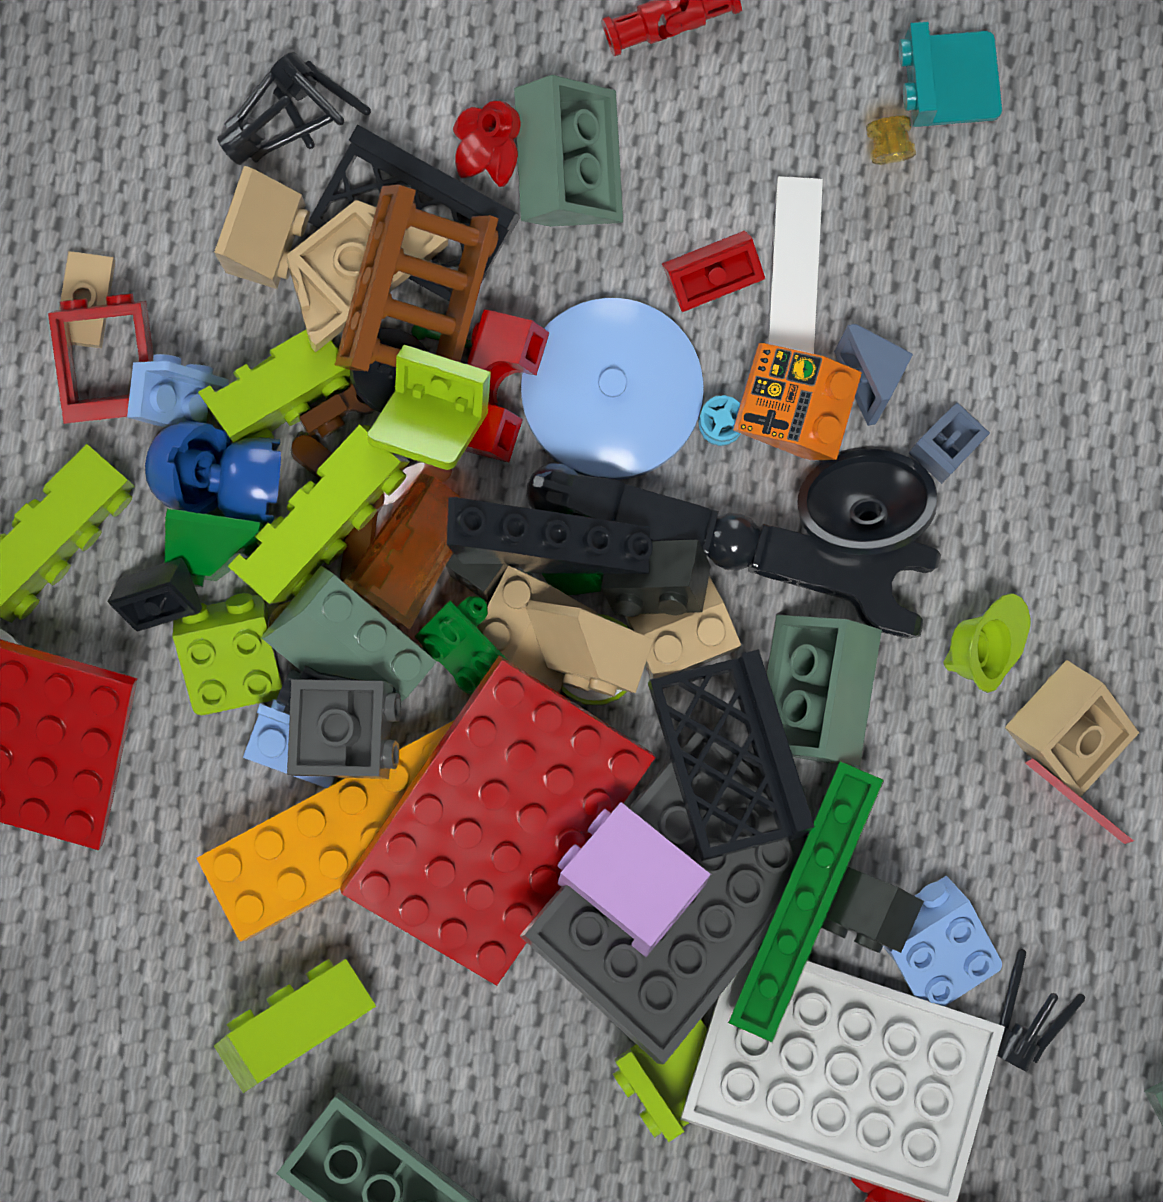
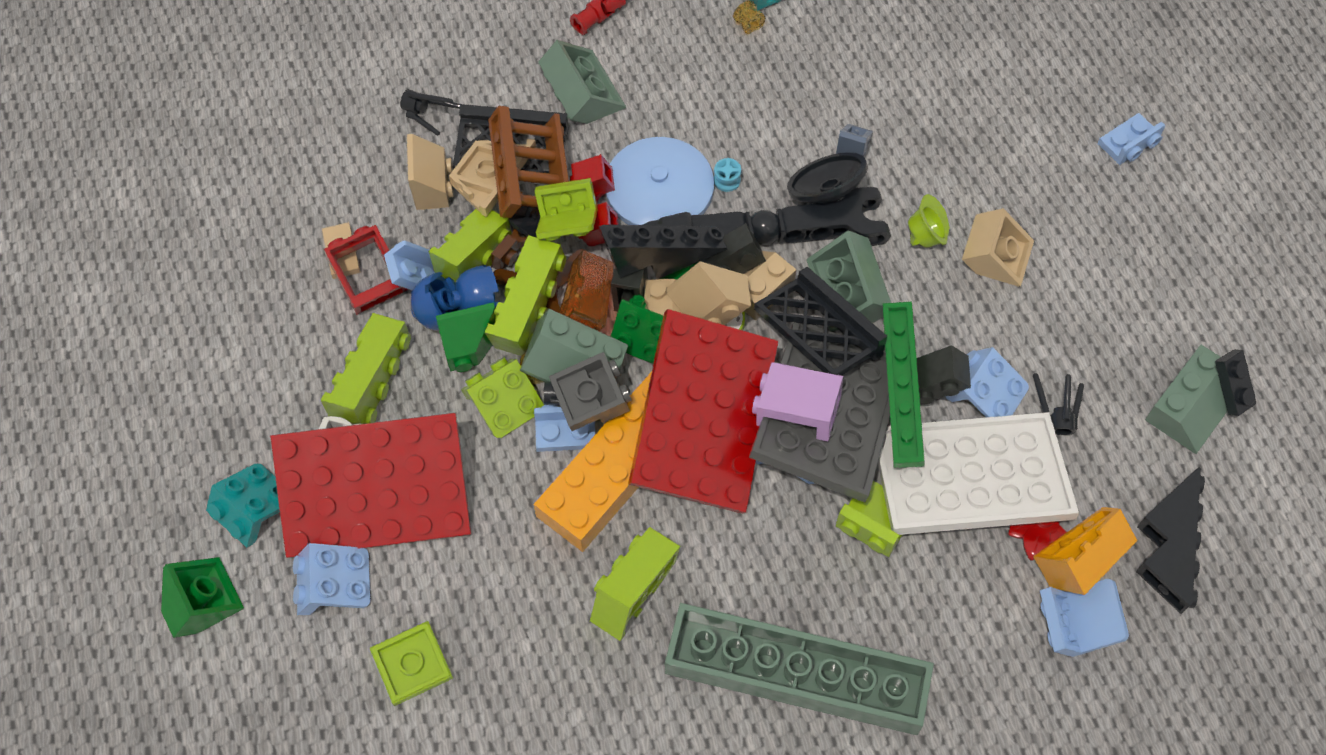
camera: 20 degrees left, 20 degrees down
(156, 595) = (447, 377): black slope -> none
(244, 138) = (397, 136): black plant -> none
(487, 141) = (532, 93): red plate -> none
(714, 270) = (687, 110): red slope -> none
(795, 263) = (729, 94): white tile -> none
(797, 402) = (765, 146): orange slope -> none
(880, 365) = (793, 119): sand blue slope -> none
(1079, 801) = (1022, 283): coral sticker -> none

